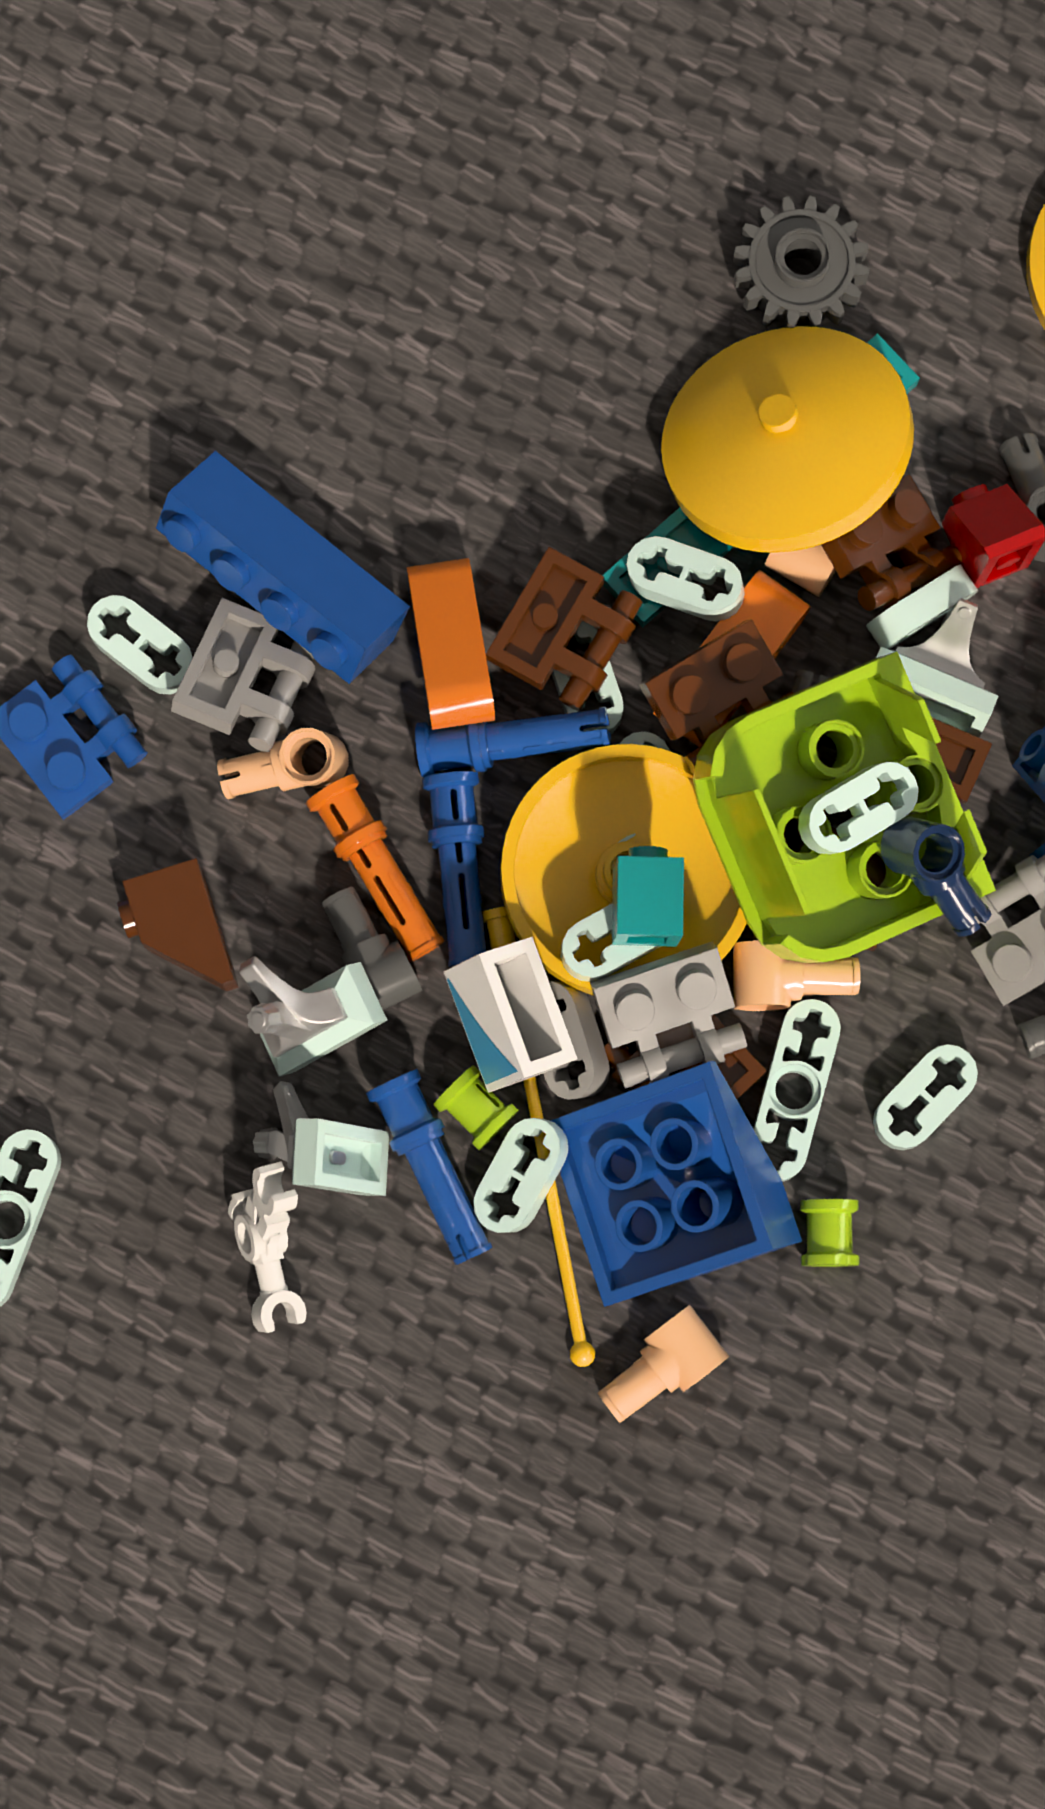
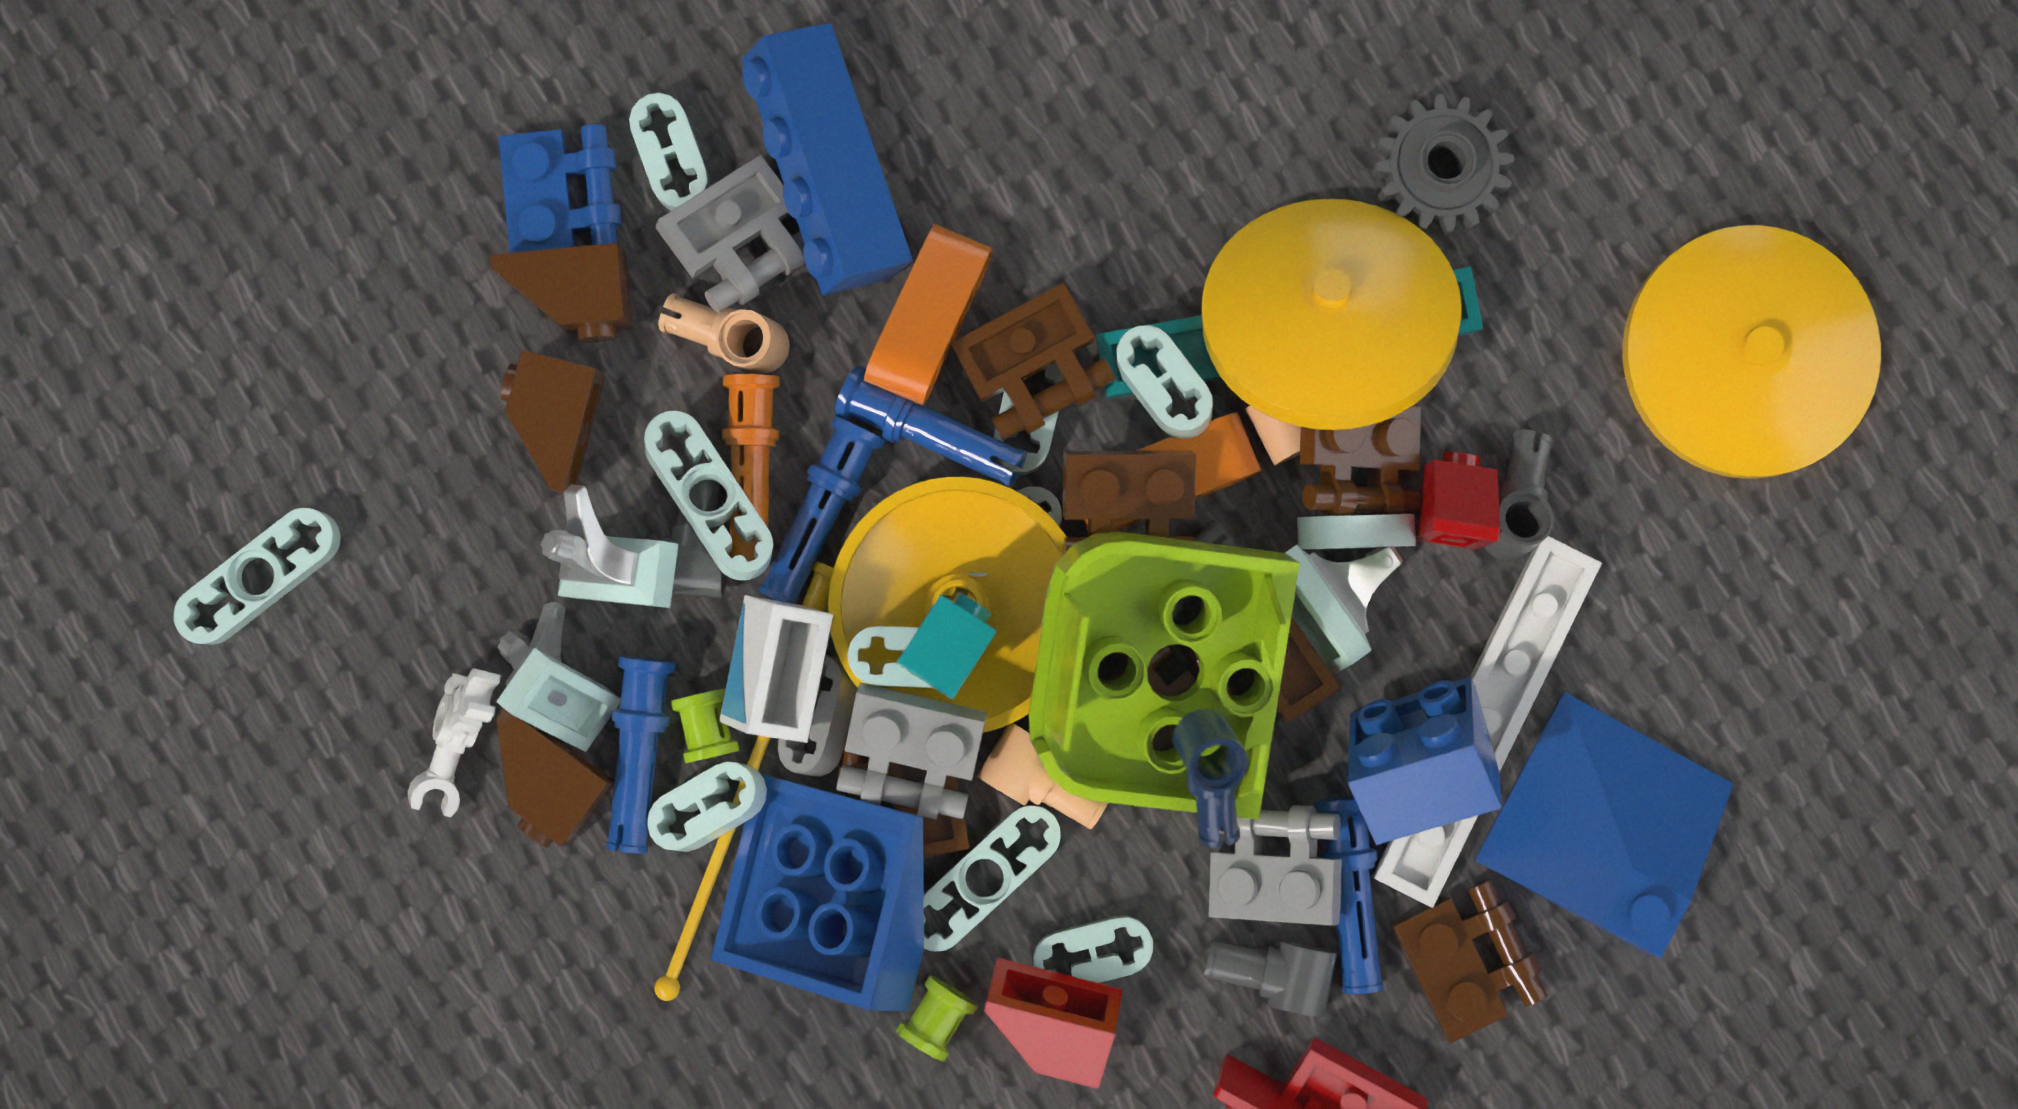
camera: 35 degrees right, 5 degrees up
(129, 806) = (575, 286): none -> reddish brown slope
(371, 1237) = (548, 782): none -> reddish brown slope
(408, 911) = (698, 446): none -> light aqua beam
(674, 1357) = (743, 1040): light nougat pin -> none
(851, 795) = (1177, 695): light aqua beam -> none
(934, 1167) = (1055, 1020): none -> red slope

